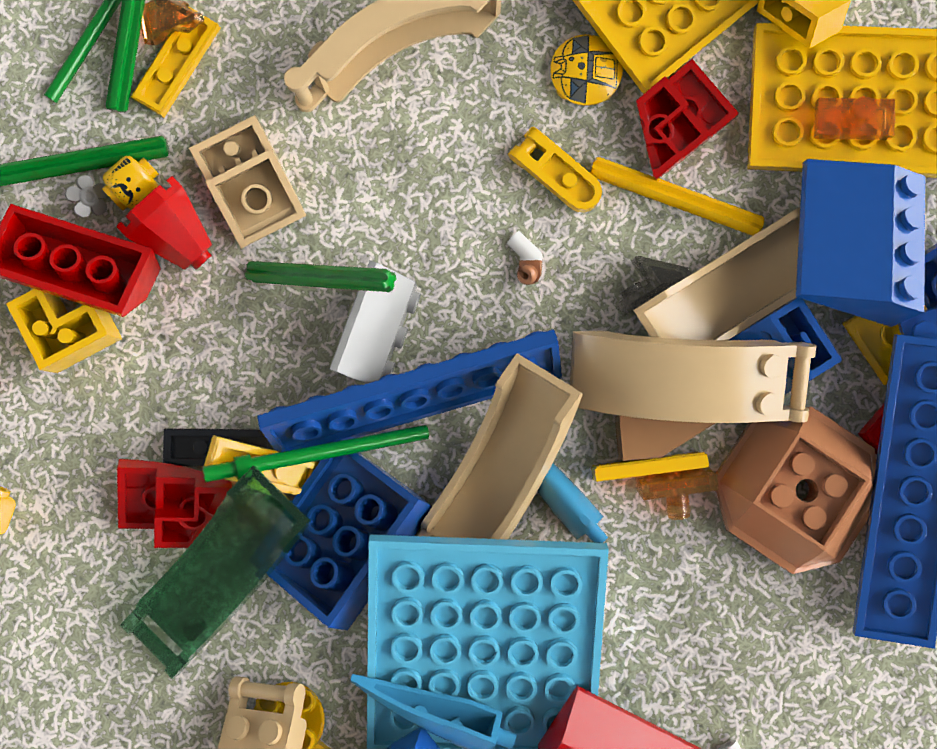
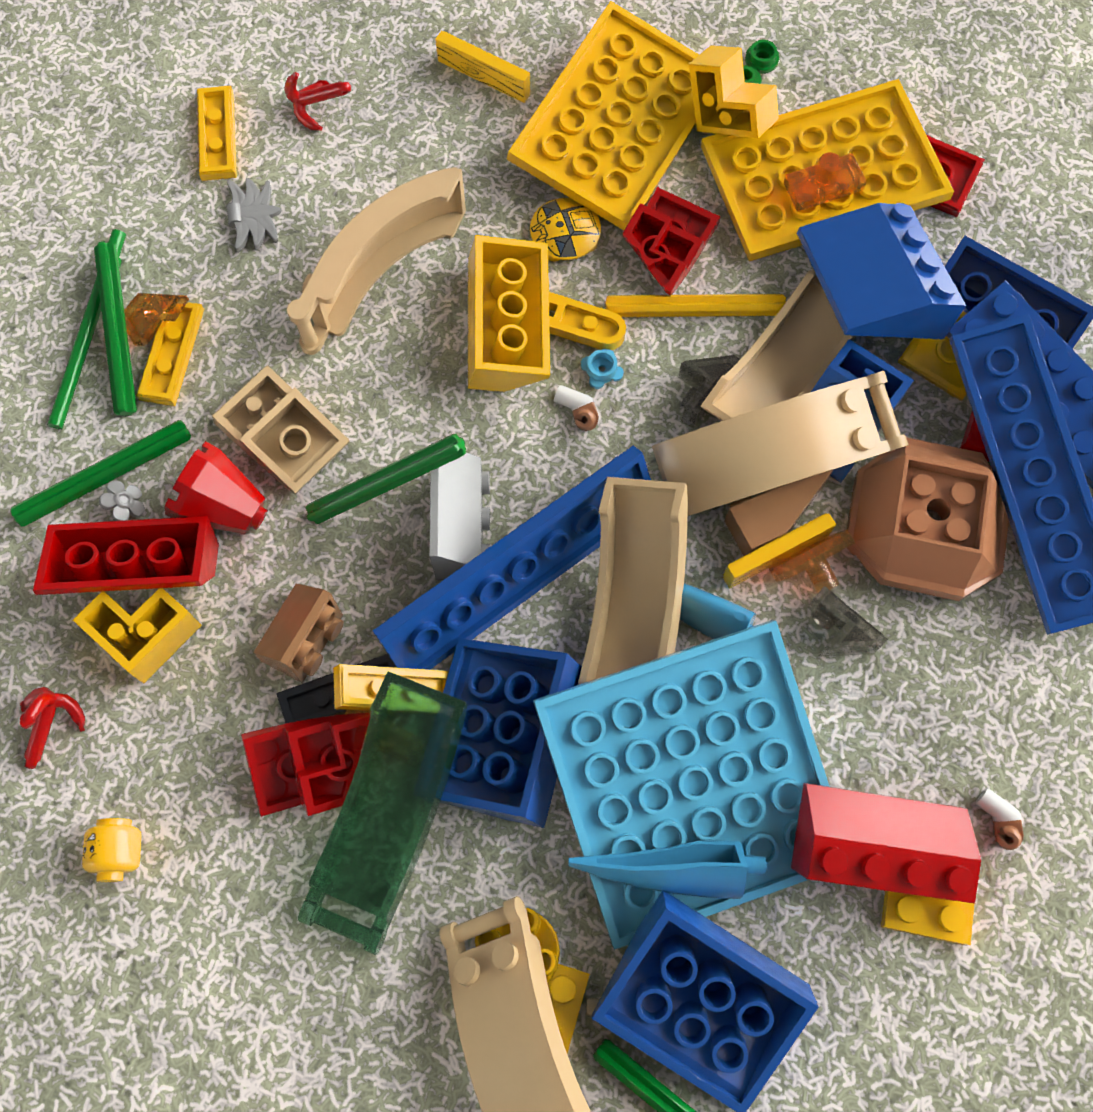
camera: 25 degrees left, 15 degrees down
(129, 182) = (160, 469): yellow head -> none
(199, 384) = (301, 632): none -> medium nougat slope
(243, 463) = (443, 652): green bar -> none
(496, 143) = (507, 313): none -> yellow slope
(570, 220) = (601, 358): none -> medium azure plate
(680, 565) = (853, 634): none -> clear smoke slope

